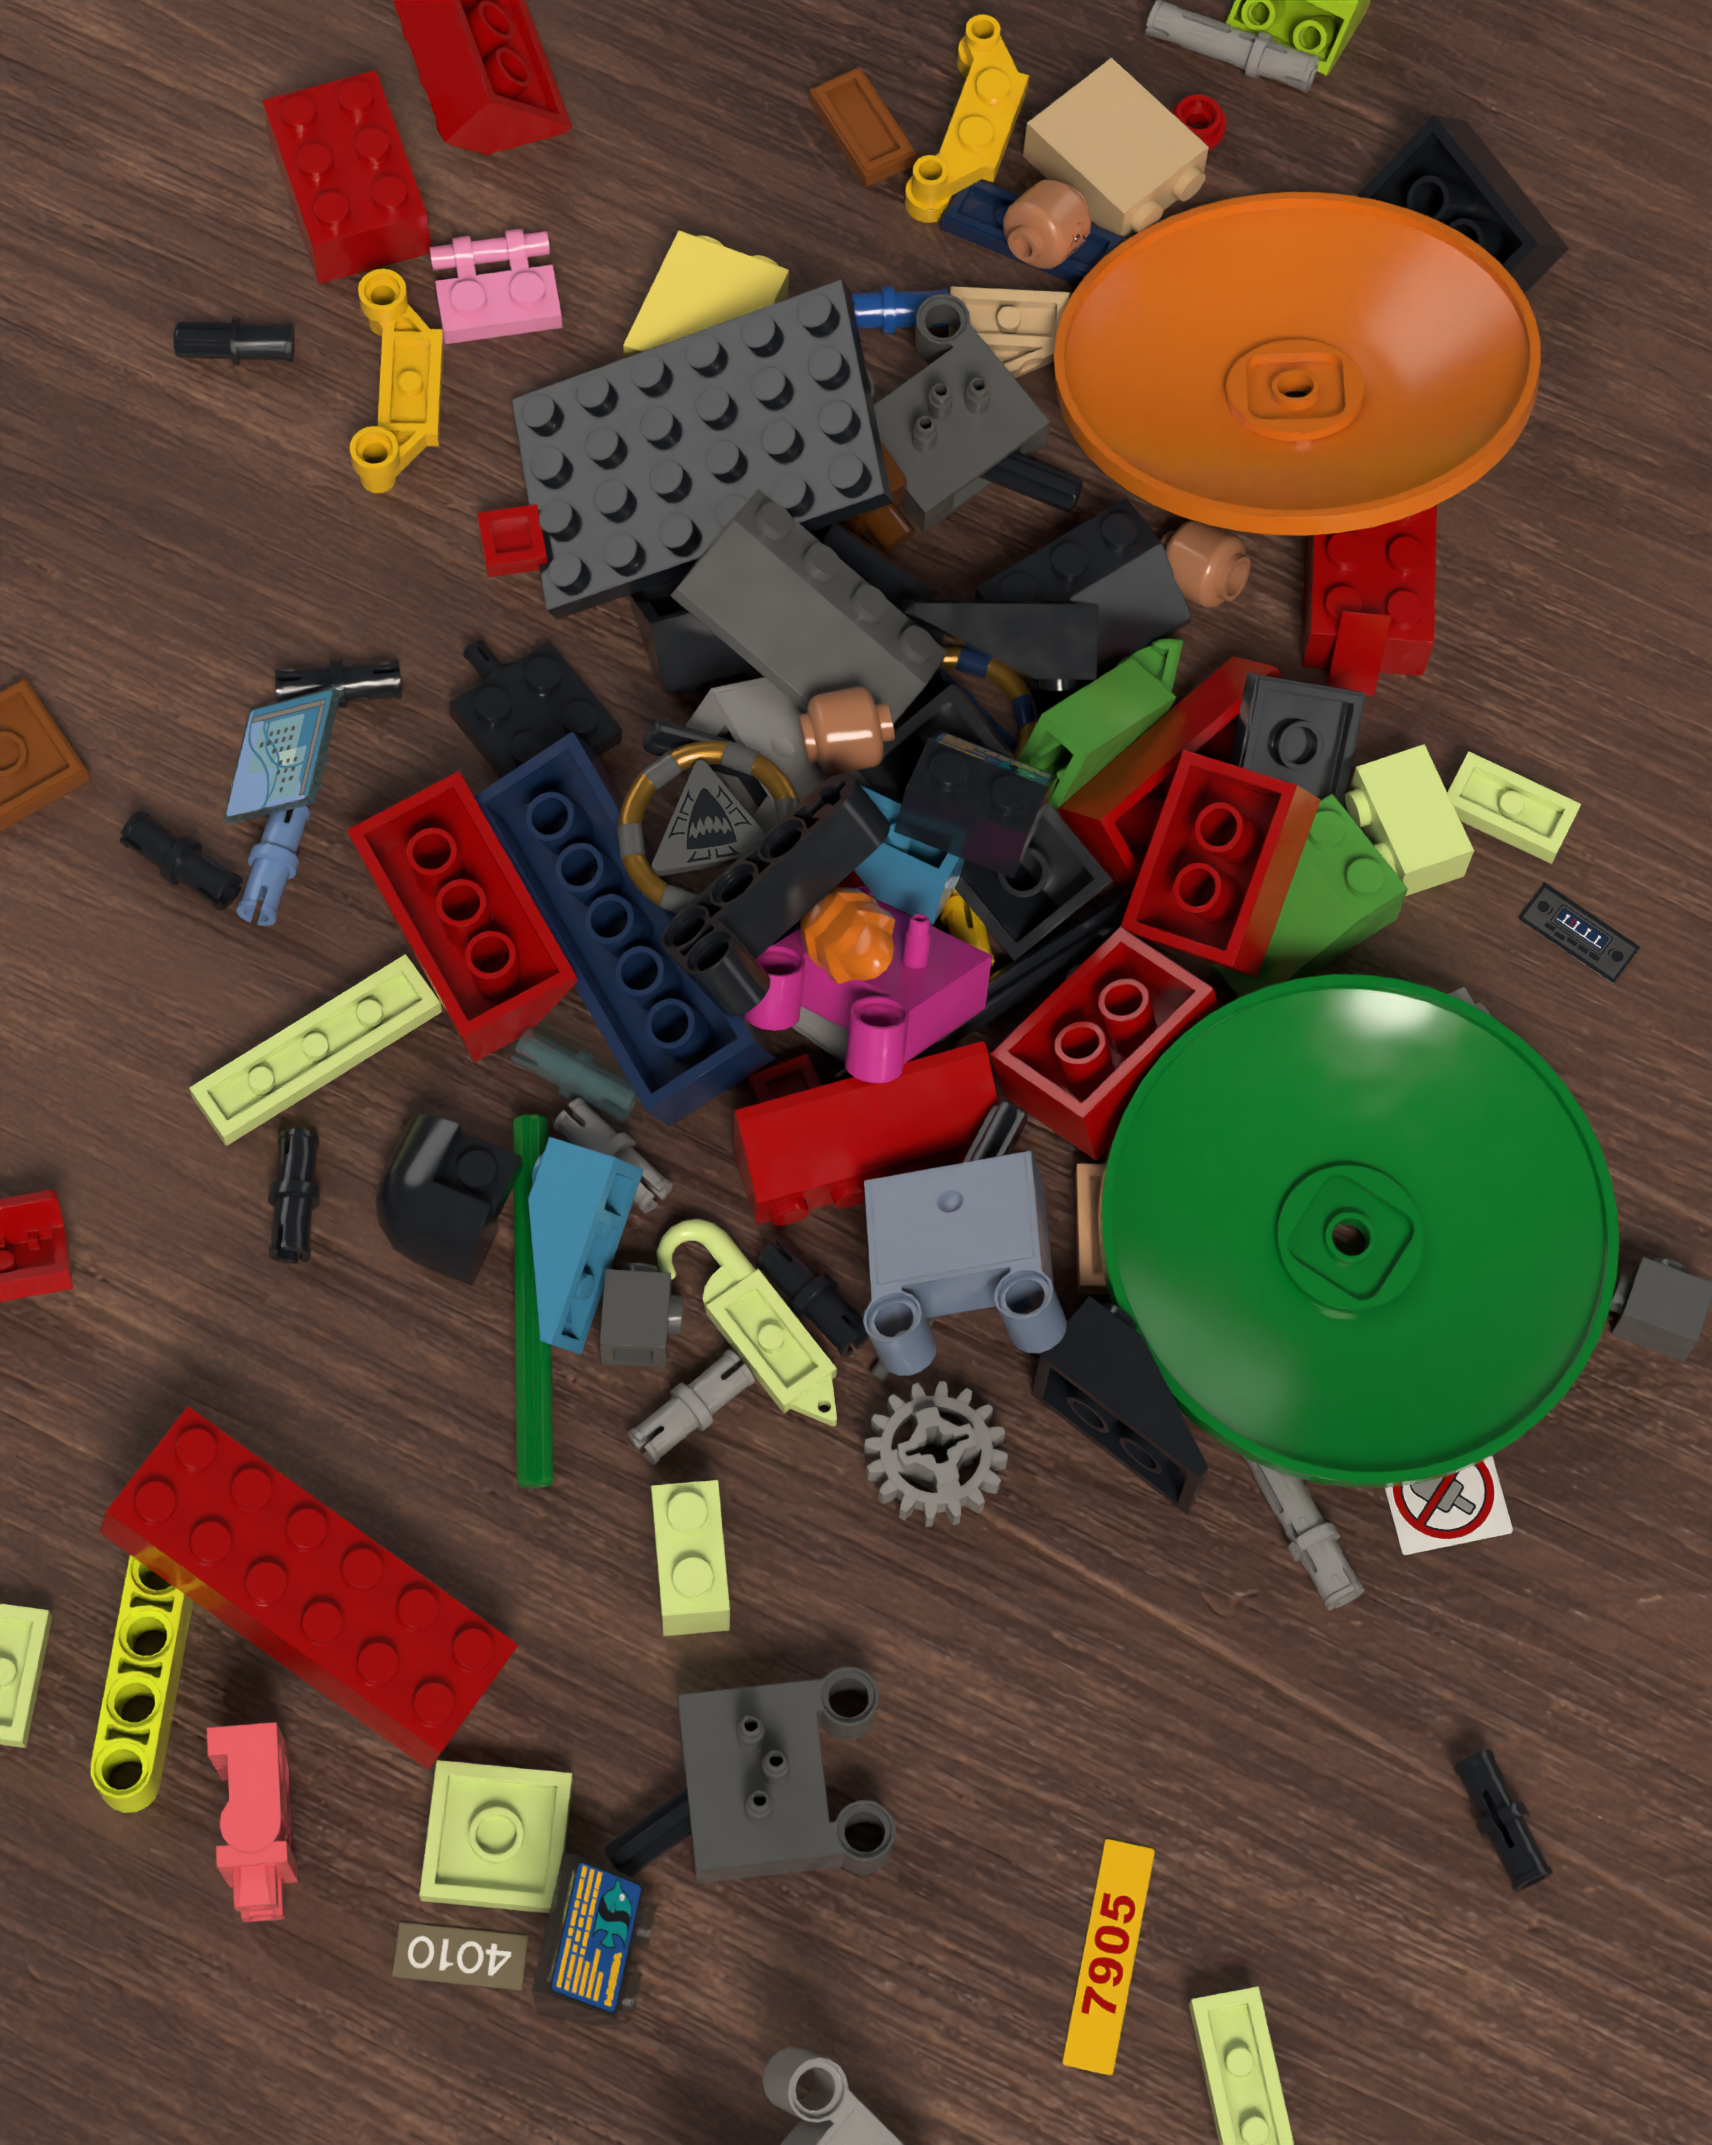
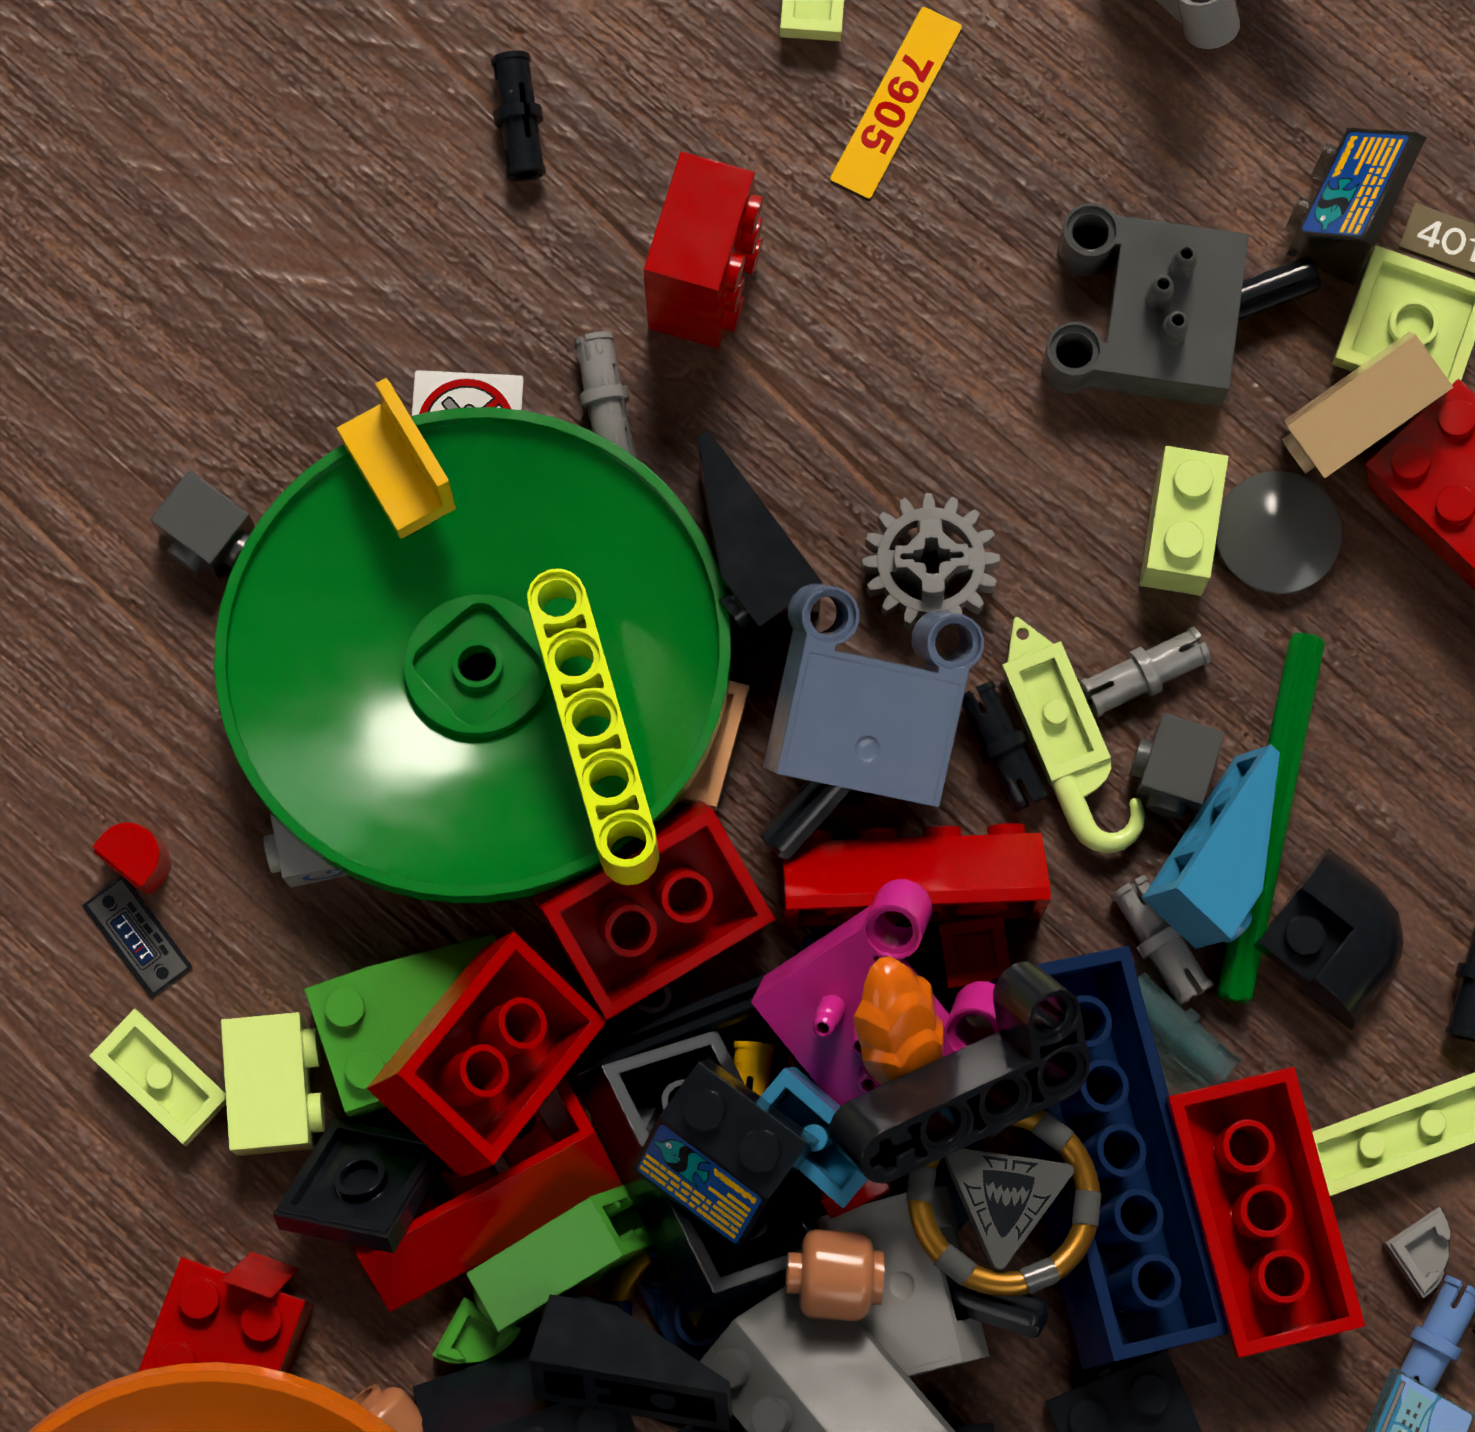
camera: 160 degrees left, 10 degrees up
(302, 943) = (1422, 1252): none -> light grey tile
(530, 1700) = (1365, 406): none -> tan brick
(589, 1584) = (1278, 532): none -> dark grey dish
(1221, 1185) = (593, 696): none -> neon yellow beam
(1263, 1677) = (702, 249): none -> red brick
(1496, 1383) = (397, 464): none -> yellow panel
(1608, 987) = (135, 855): none -> red brick

